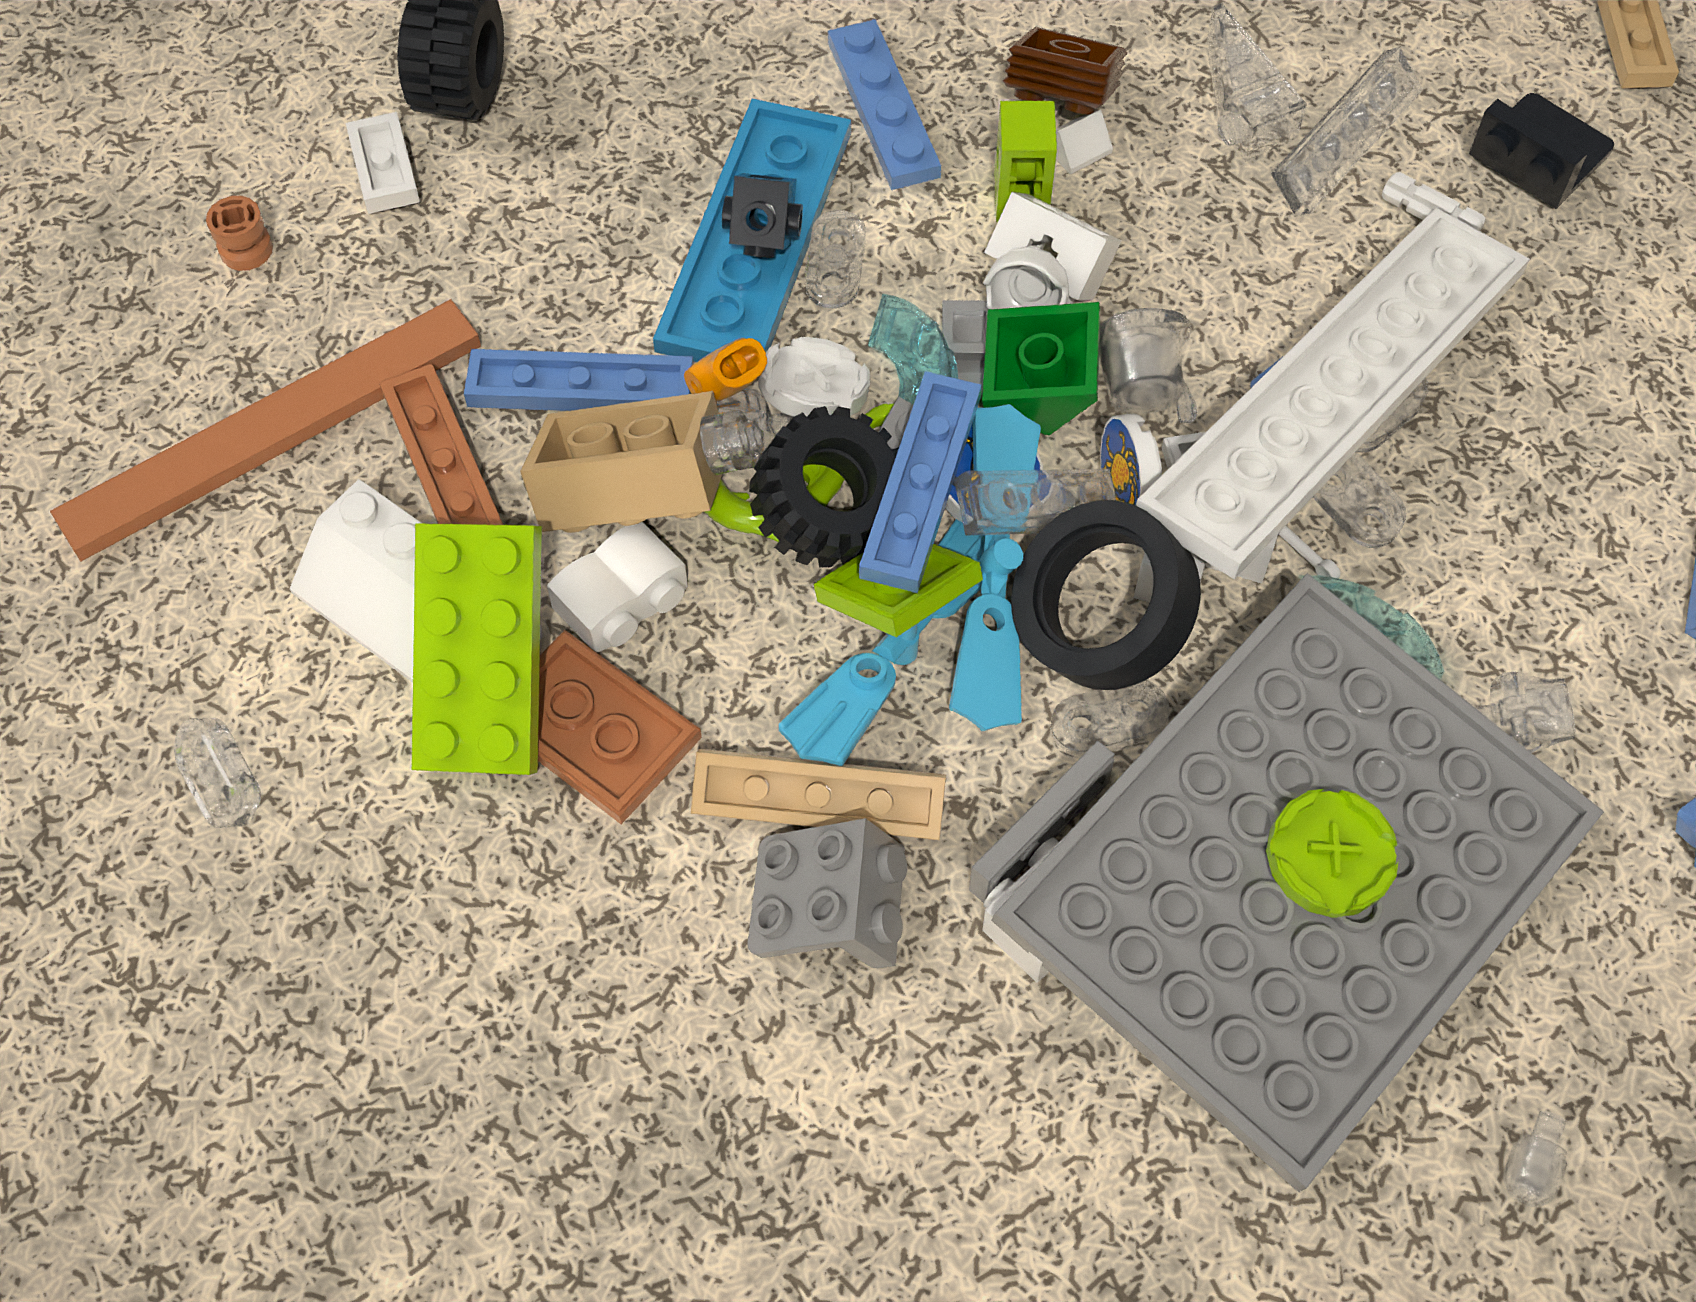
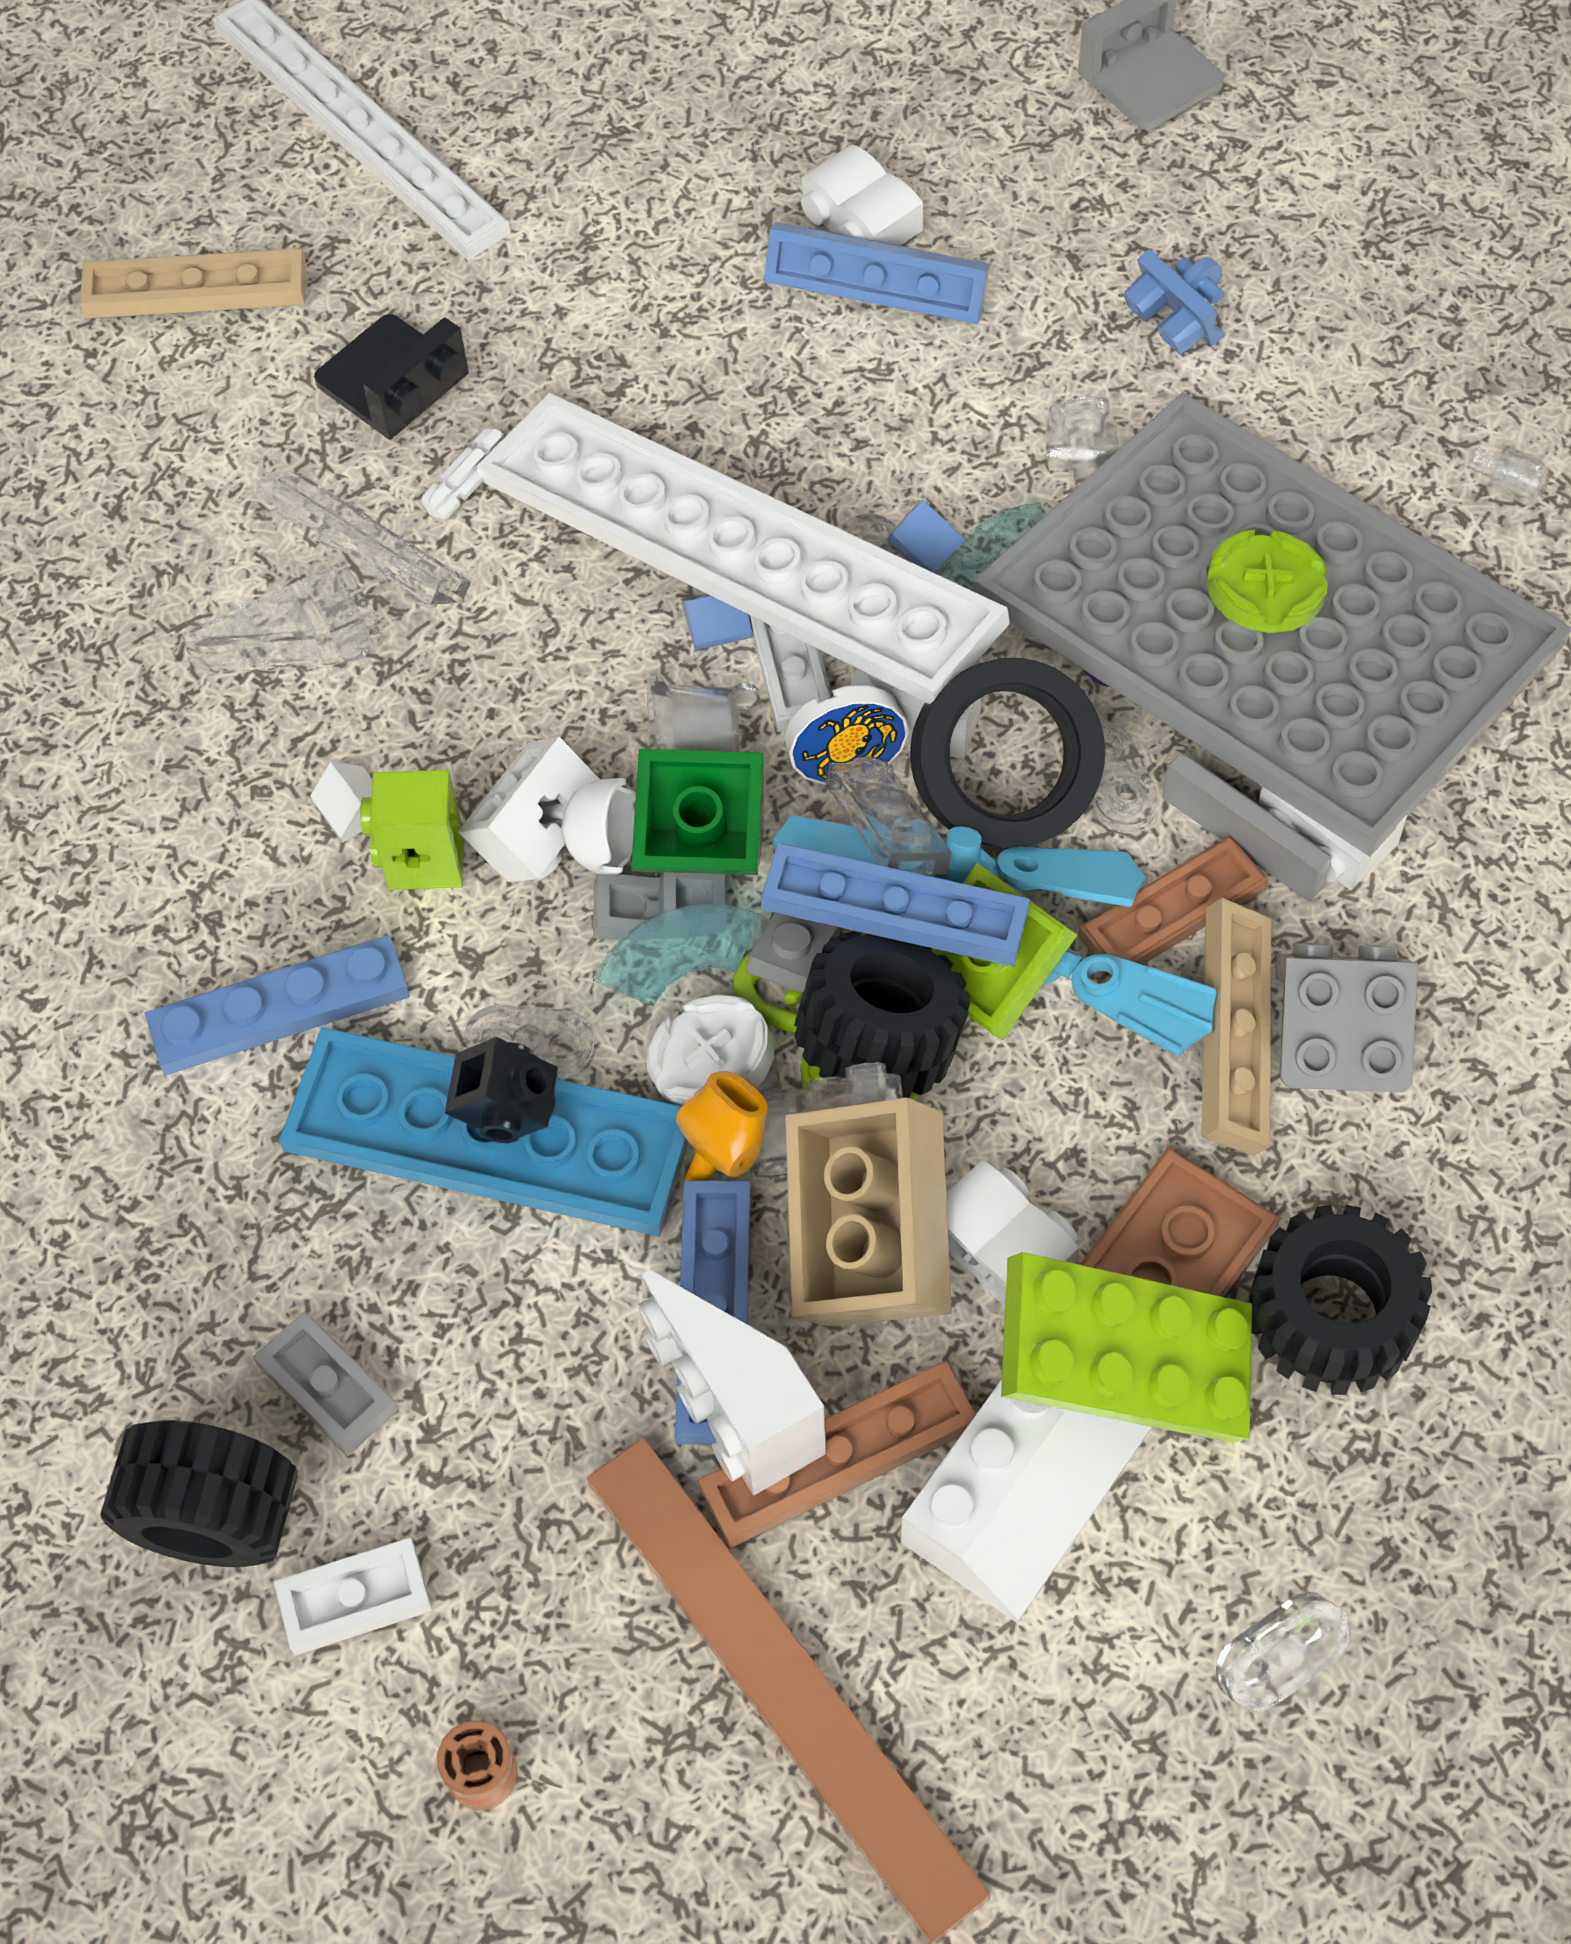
camera: 90 degrees left, 0 degrees up
(480, 352) = (739, 1381): none -> white slope
(510, 799) = (1360, 1253): none -> black tyre
(550, 140) = (326, 1383): none -> light grey plate
(953, 746) = (1174, 904): none -> nougat tile
(1065, 69) = (268, 793): reddish brown brick -> none
(1378, 557) = (925, 538): none -> medium blue slope

